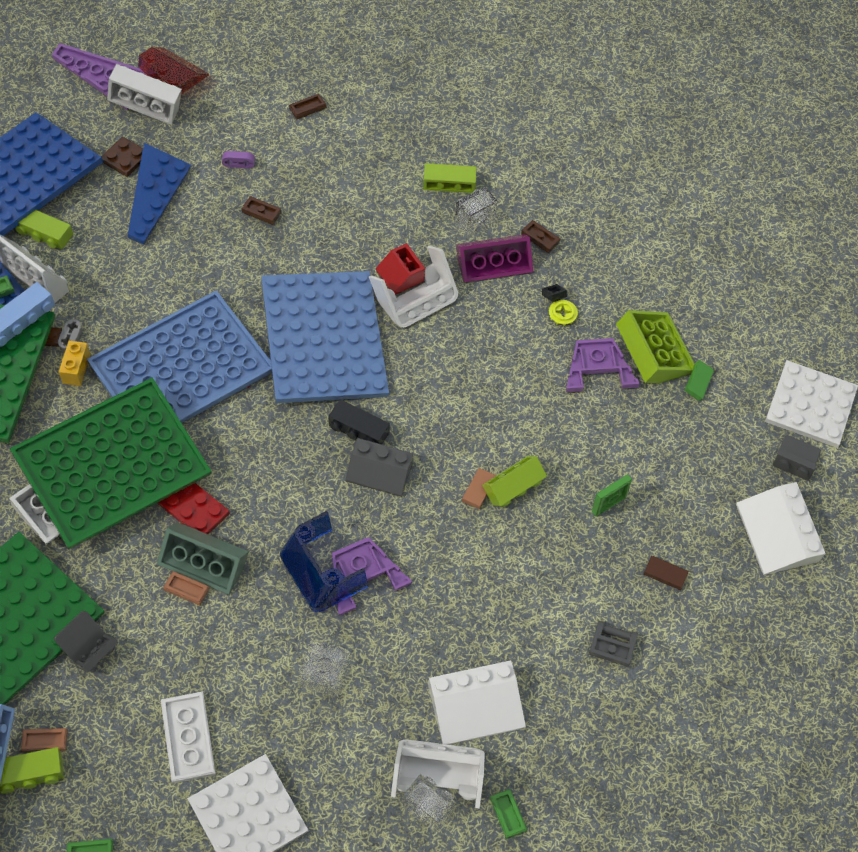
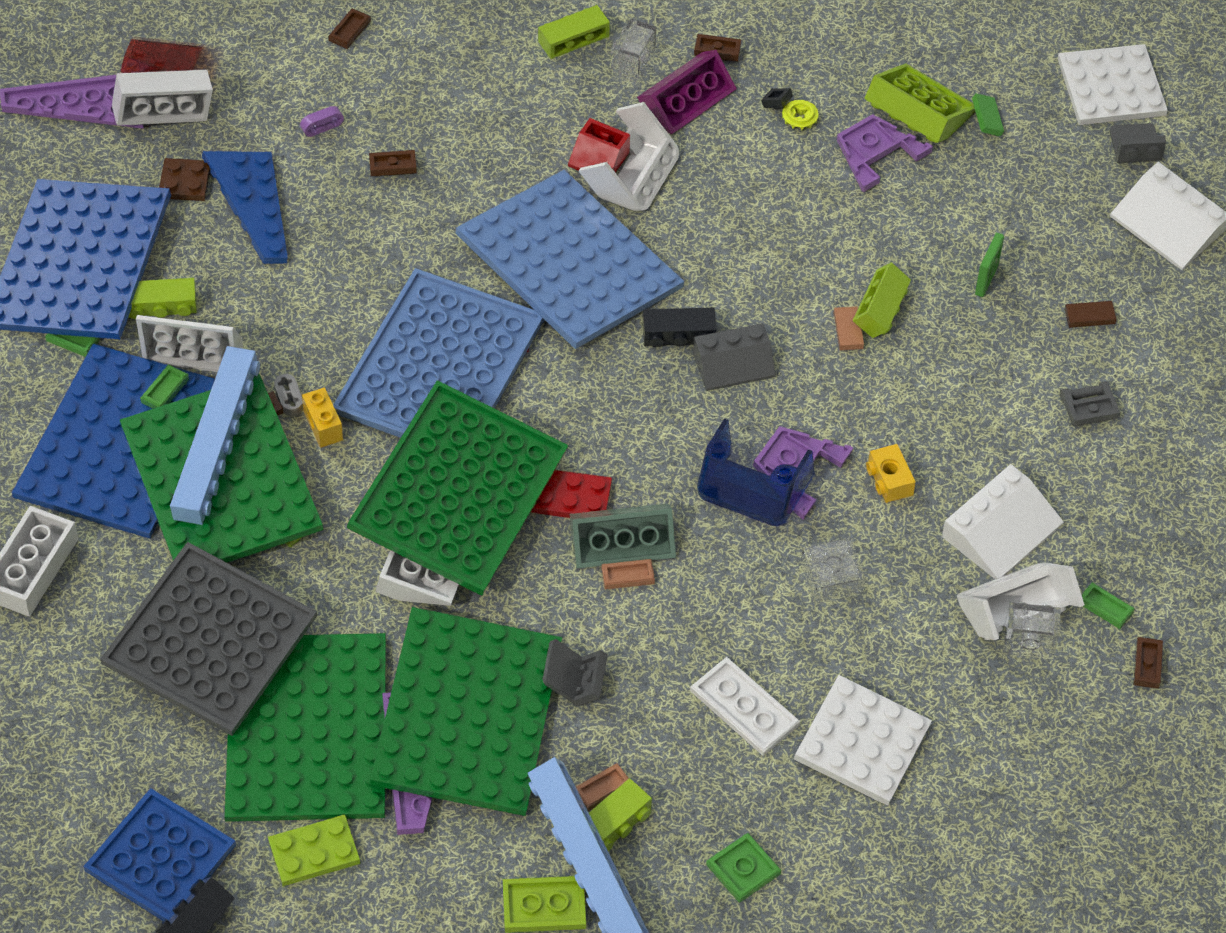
camera: 30 degrees left, 5 degrees down
(423, 628) = (890, 473): none -> yellow brick

